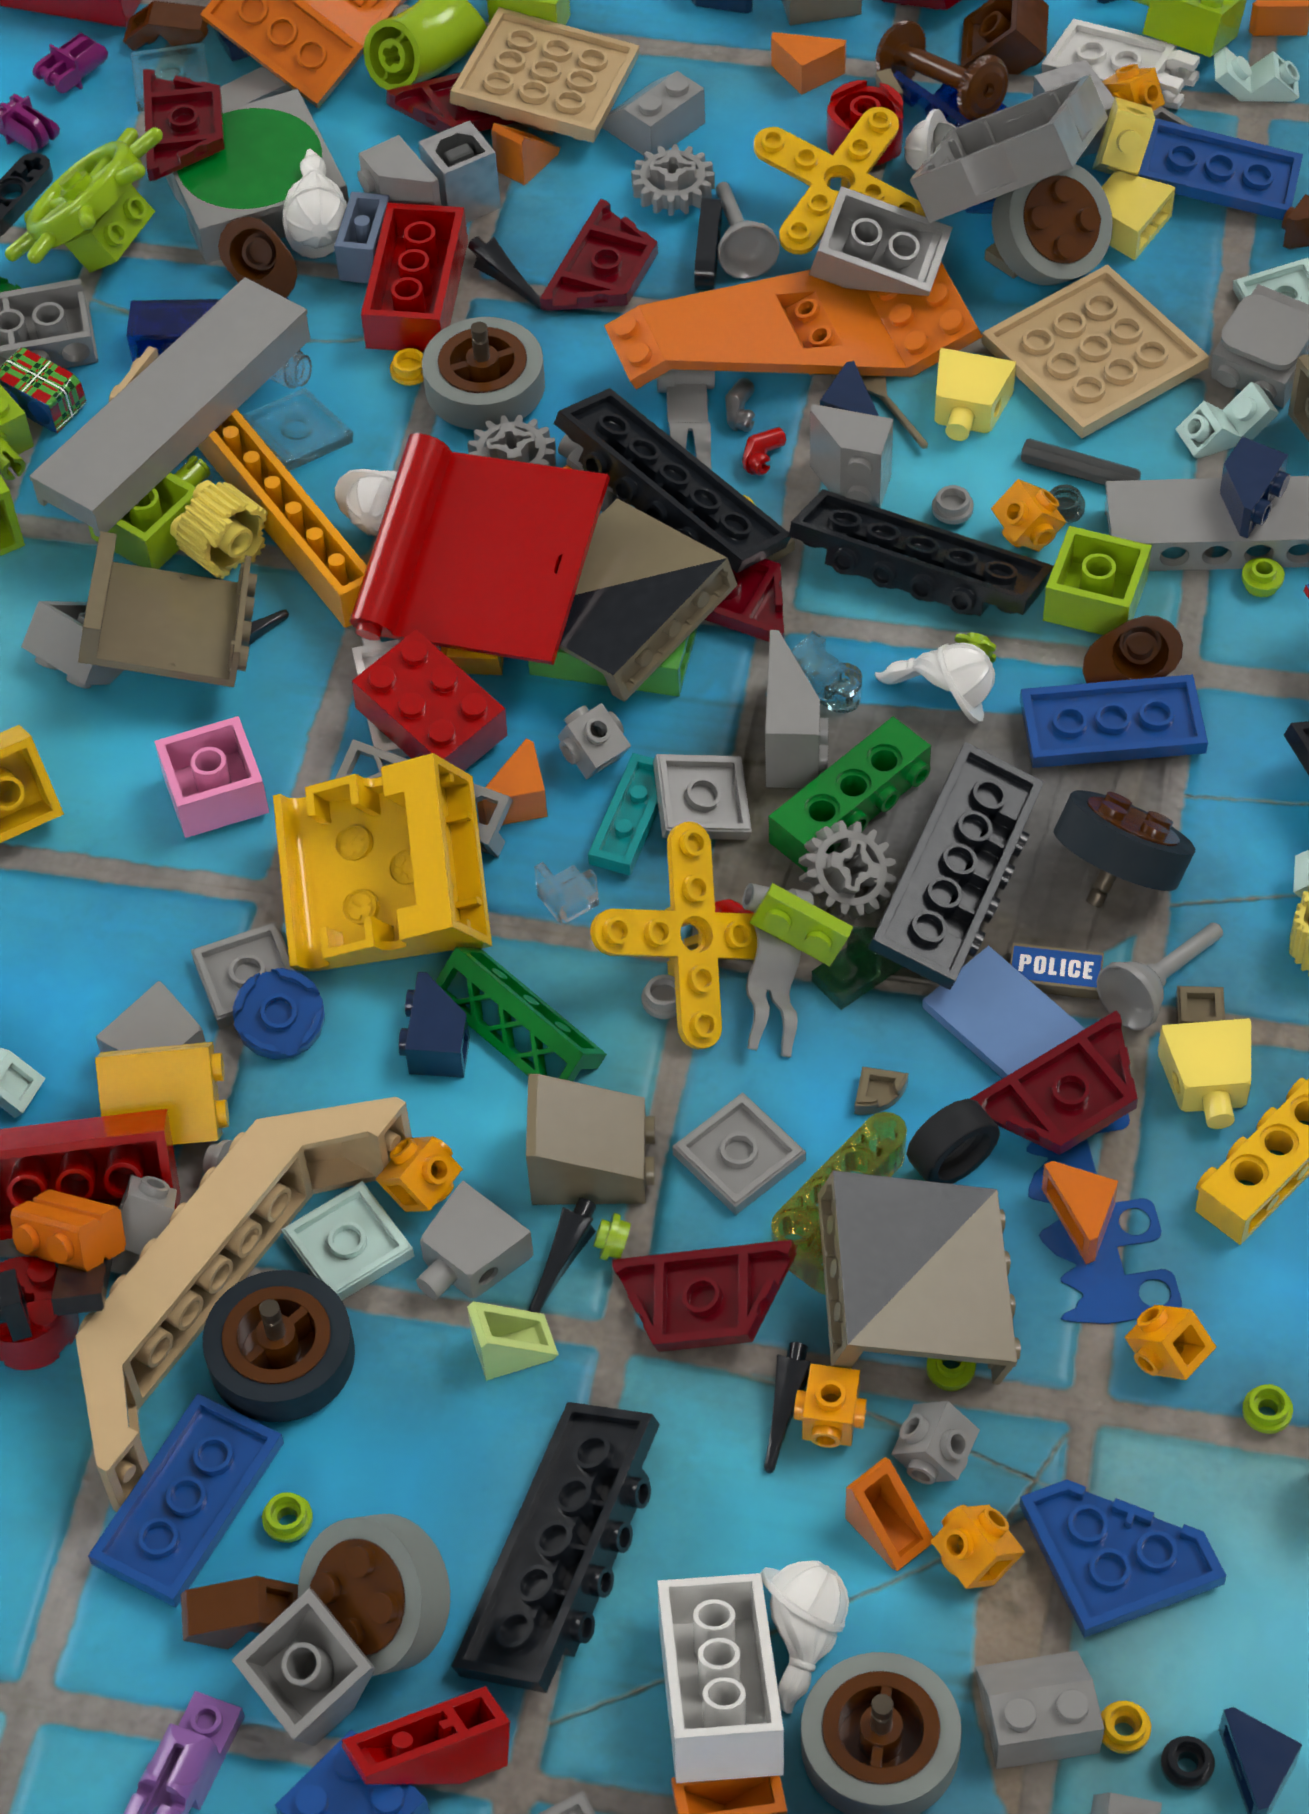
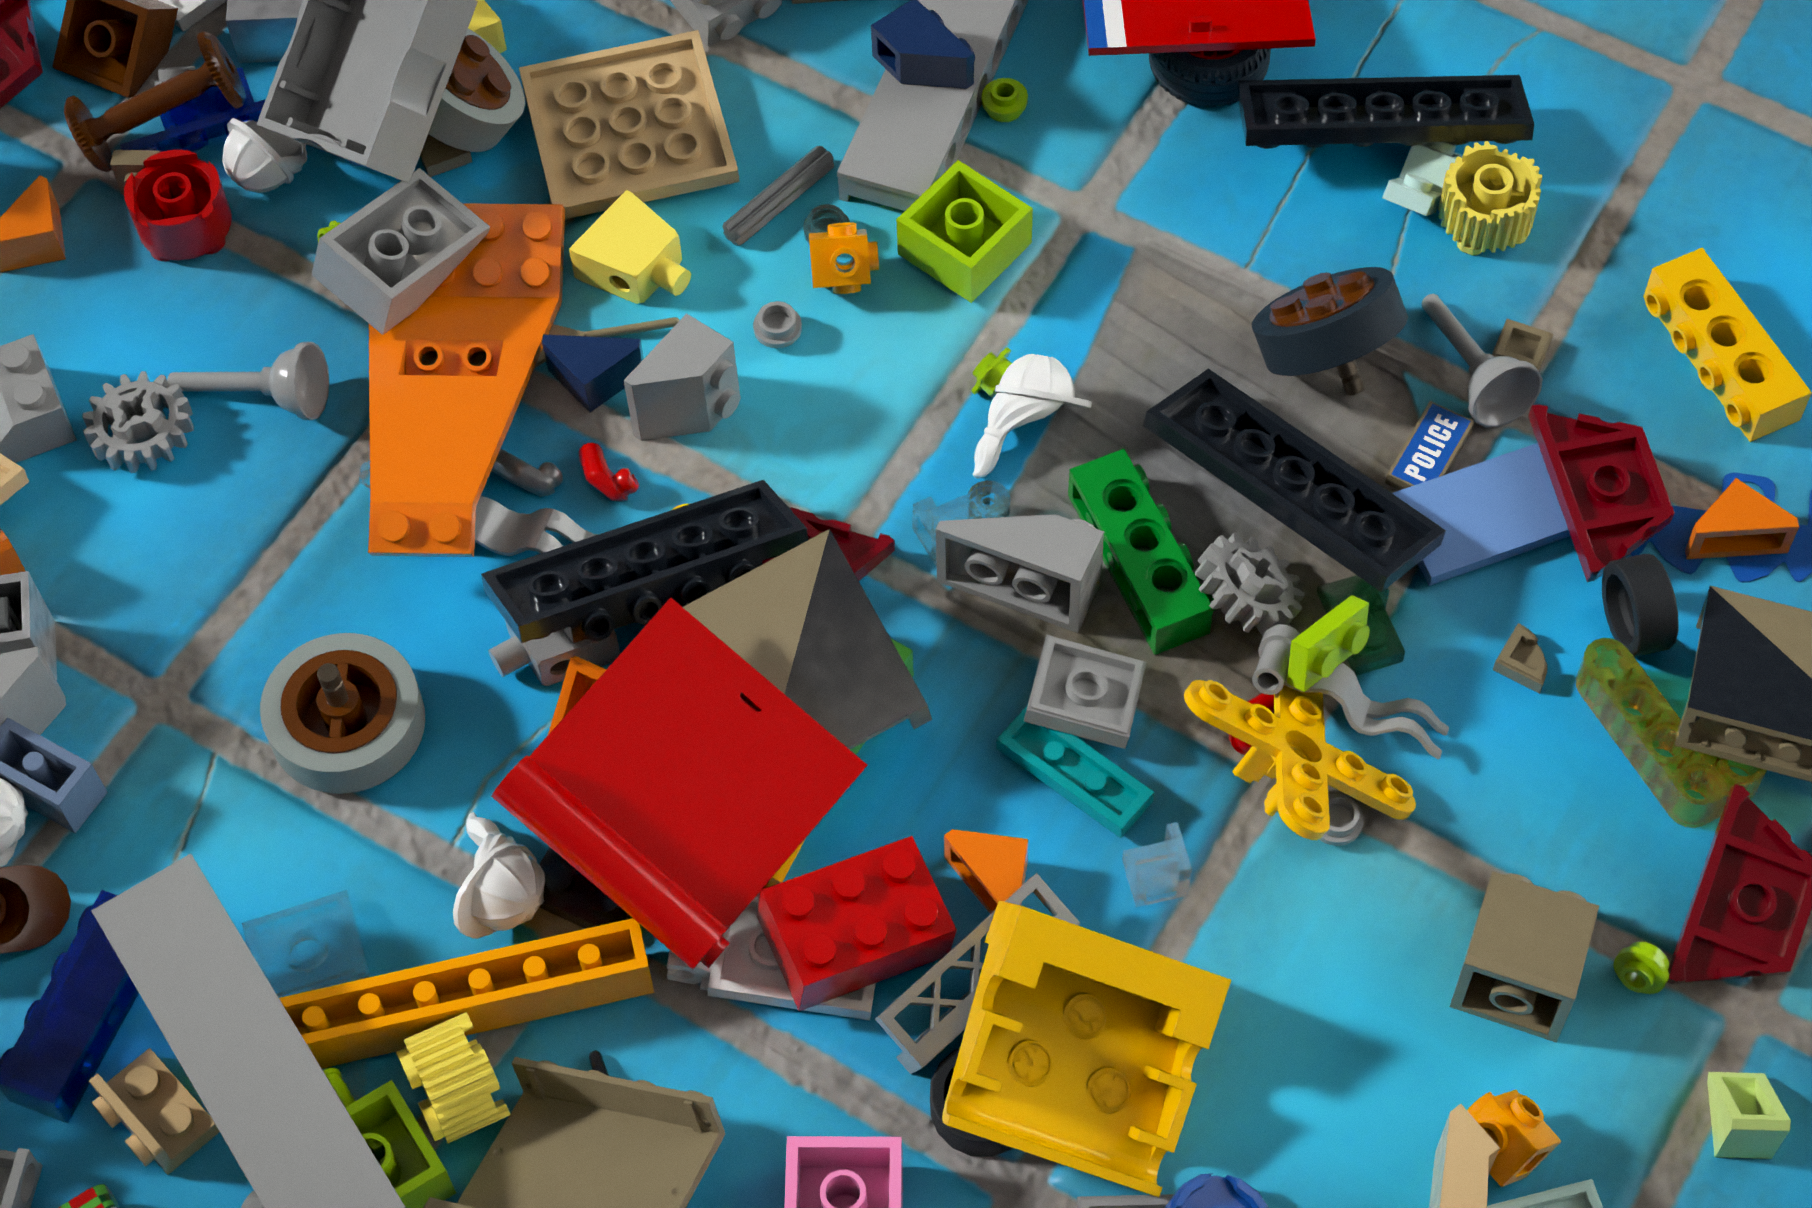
camera: 70 degrees left, 5 degrees up
(407, 367) = (274, 796): yellow plate -> none
(414, 275) = (148, 737): red brick -> none
(436, 1033) = (1305, 1062): dark blue slope -> none
(471, 1245) = (1612, 1115): light grey torso -> none
(495, 263) = (154, 650): black piece -> none
(515, 442) = (467, 711): light grey gear -> none
(524, 1006) = (1317, 957): green fence -> none
(571, 1236) = (1624, 1012): black piece -> none
(592, 739) = (967, 770): light grey brick -> none
(601, 264) = (226, 537): dark red wing -> none
(707, 243) = (261, 420): black beam -> none
(739, 1153) = (1561, 815): light grey tile -> none
(816, 168) = (239, 265): yellow piece -> none
(919, 557) = (843, 376): black plate -> none
(1113, 721) = (1138, 289): blue plate -> none
(1134, 650) = (1069, 234): reddish brown piece -> none
(1208, 1067) = (1606, 362): light yellow torso -> none
(1216, 430) = (788, 50): light aqua slope -> none

